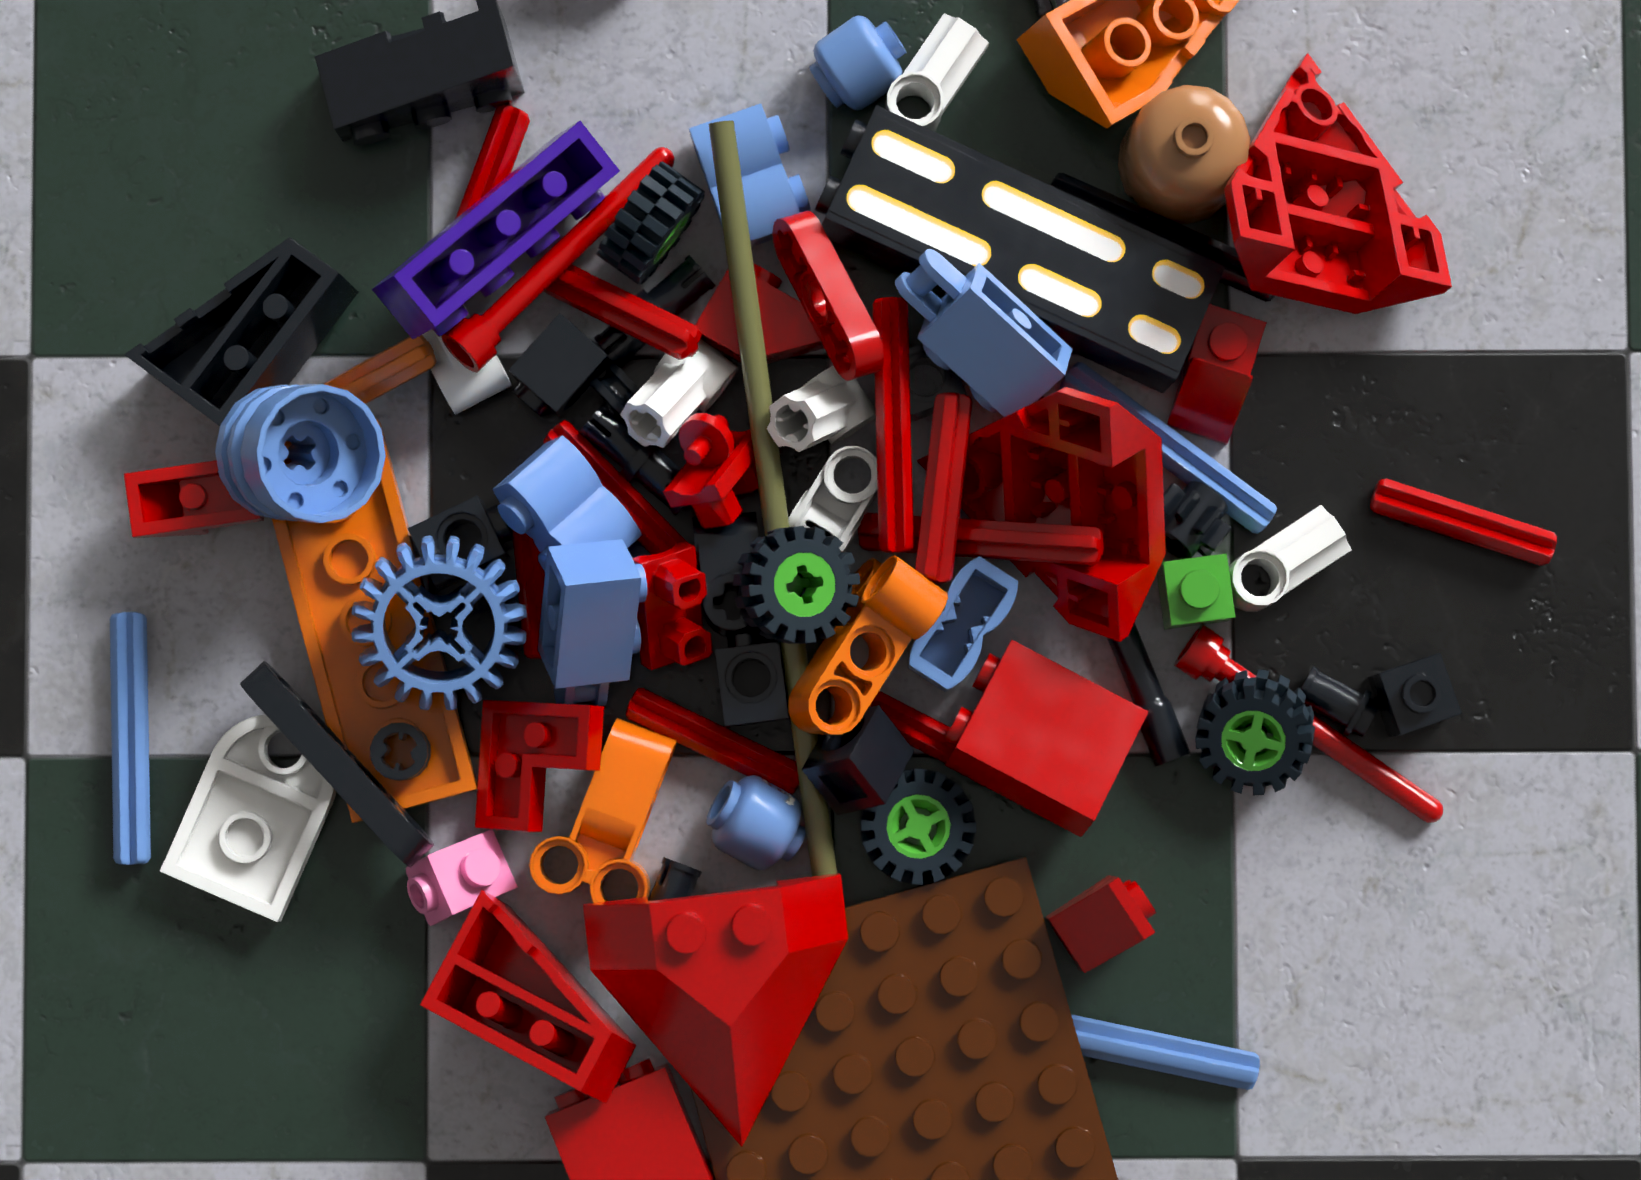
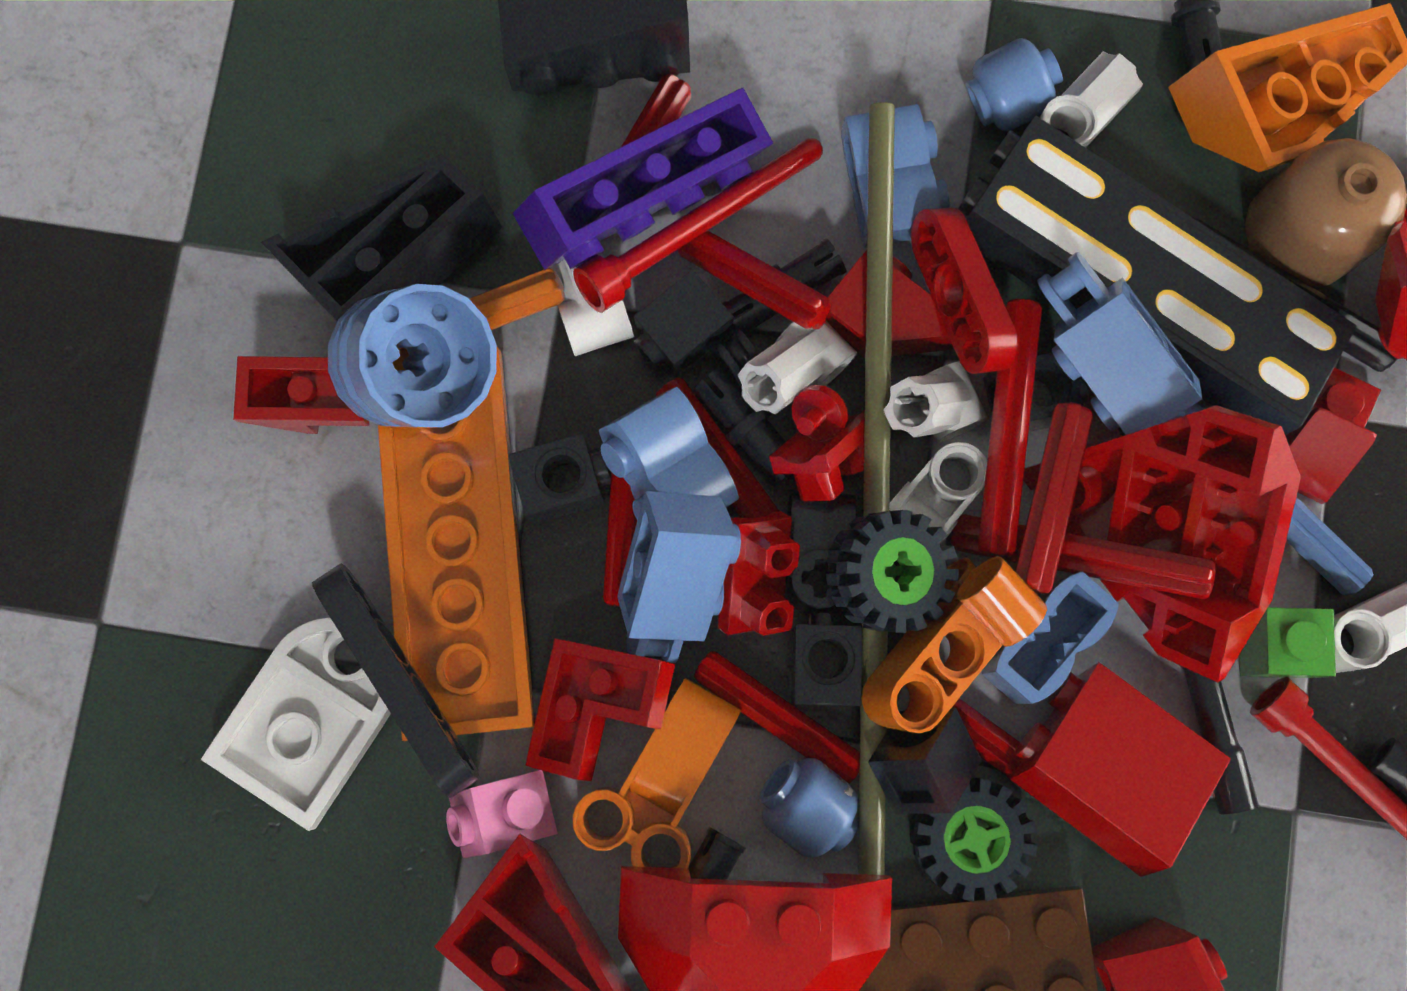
camera: 10 degrees right, 5 degrees down
(130, 738) = (200, 622): medium blue axle -> none
(380, 749) = (443, 670): black bush -> none
(399, 662) = (504, 525): medium blue gear -> none
(650, 223) = (794, 198): black wheel -> none
(1193, 520) = (1301, 573): black gear -> none
(1251, 754) = (1345, 818): black wheel -> none

